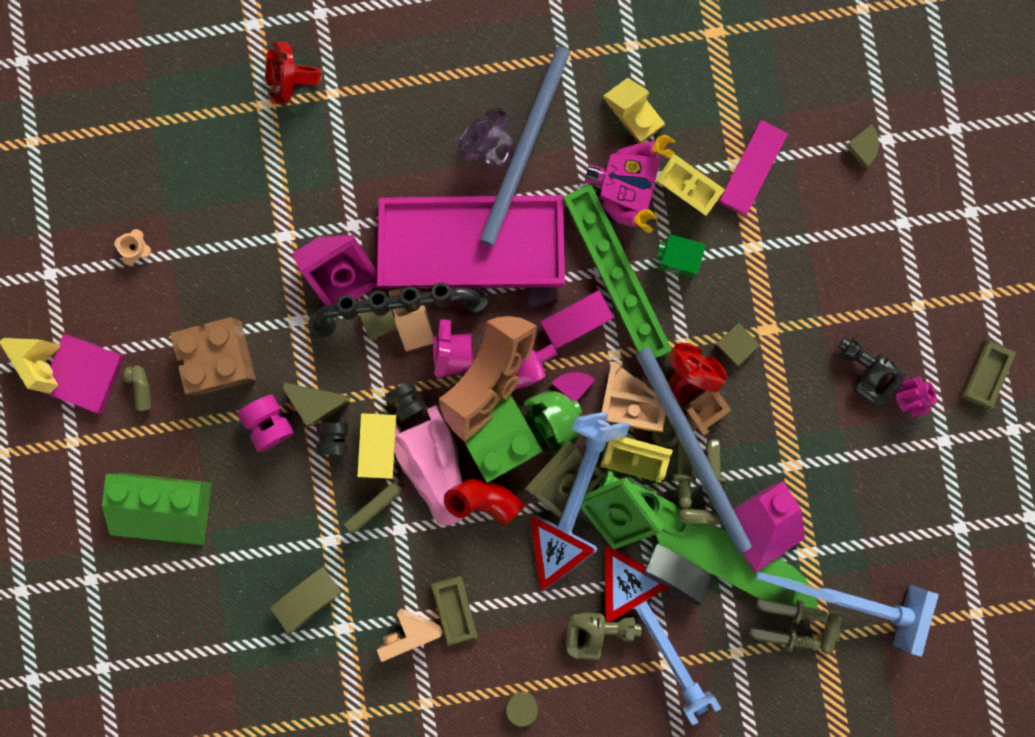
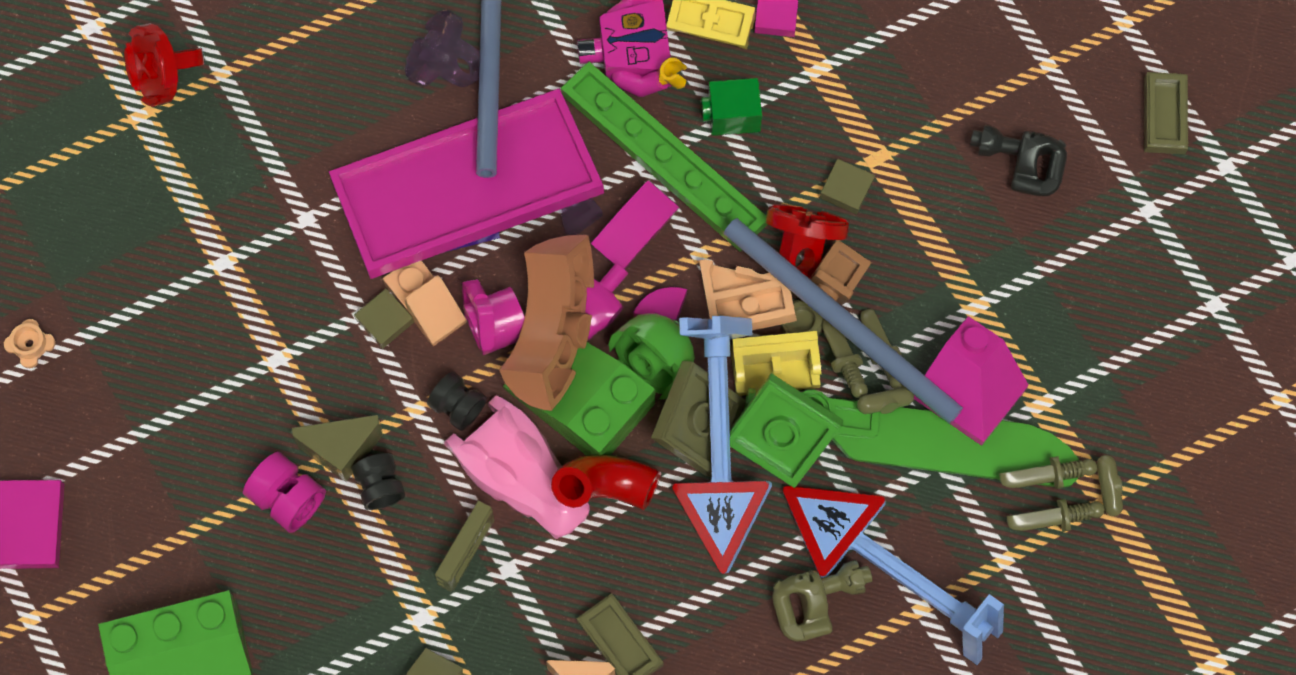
camera: 25 degrees left, 15 degrees down
(141, 387) = (102, 510): olive arm -> none
(213, 356) = (186, 435): medium nougat piece -> none
(324, 324) = (380, 288): pearl dark grey bar -> none
(336, 268) = (308, 273): dark pink slope -> none
(376, 446) = (440, 468): light yellow hinge -> none
(678, 573) = (883, 479): pearl dark grey slope -> none
(912, 618) = (1200, 427): light blue piece -> none
(916, 396) = (1089, 165): dark pink gear -> none

